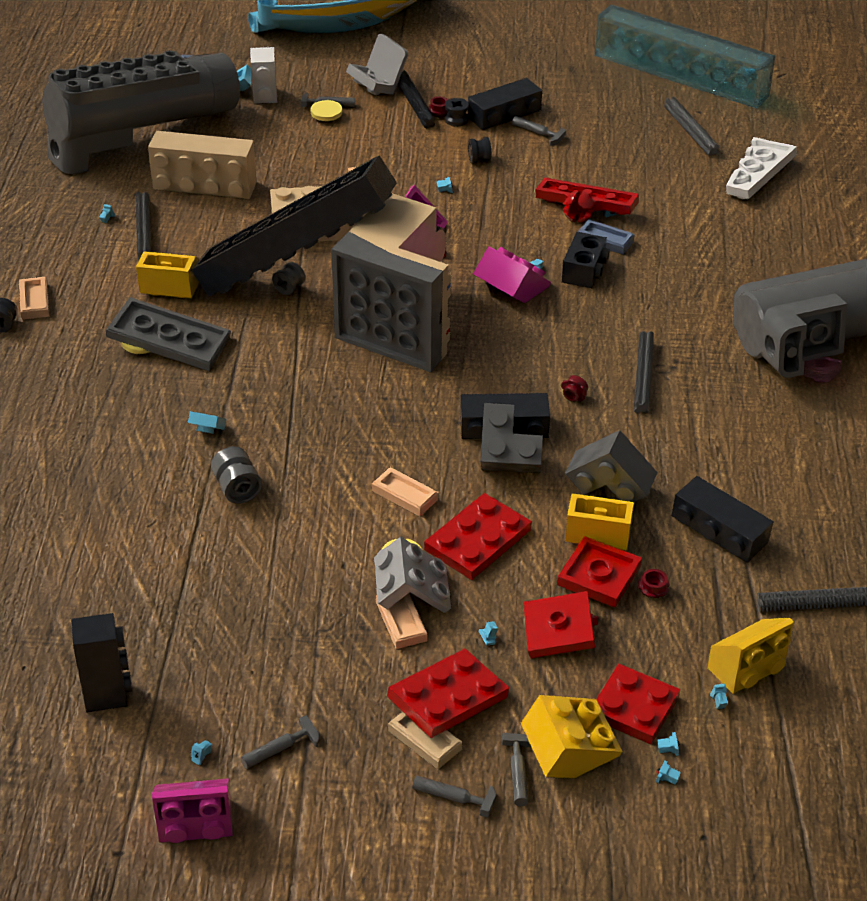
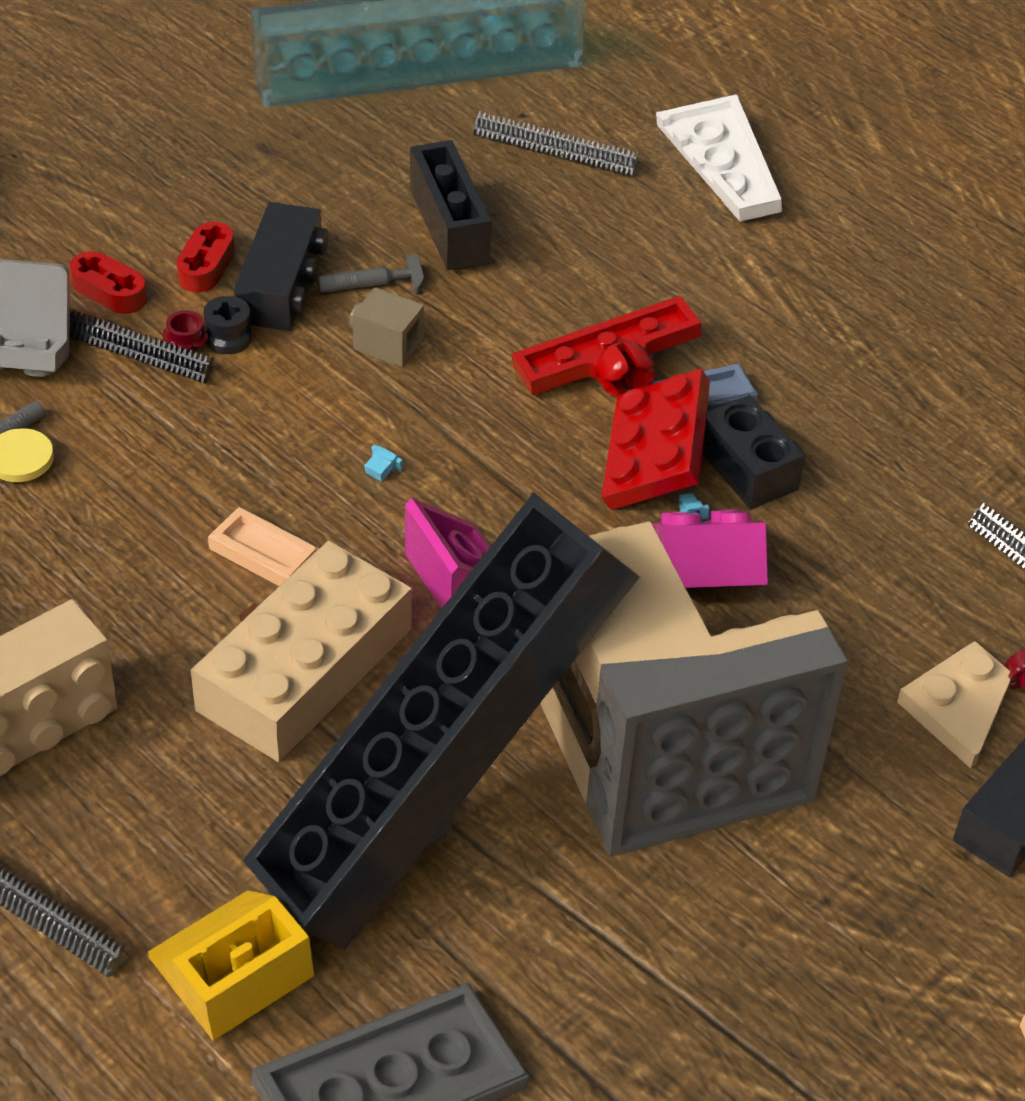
camera: 50 degrees left, 5 degrees up
(438, 77) = (108, 282): none -> red beam
(479, 150) = (358, 369): black wheel -> none
(484, 84) = (210, 247): none -> red beam
(513, 144) = (387, 326): none -> dark tan brick
(536, 378) = (959, 700): none -> tan wing
(547, 232) = (656, 439): none -> red plate
(599, 117) = (450, 205): none -> black brick

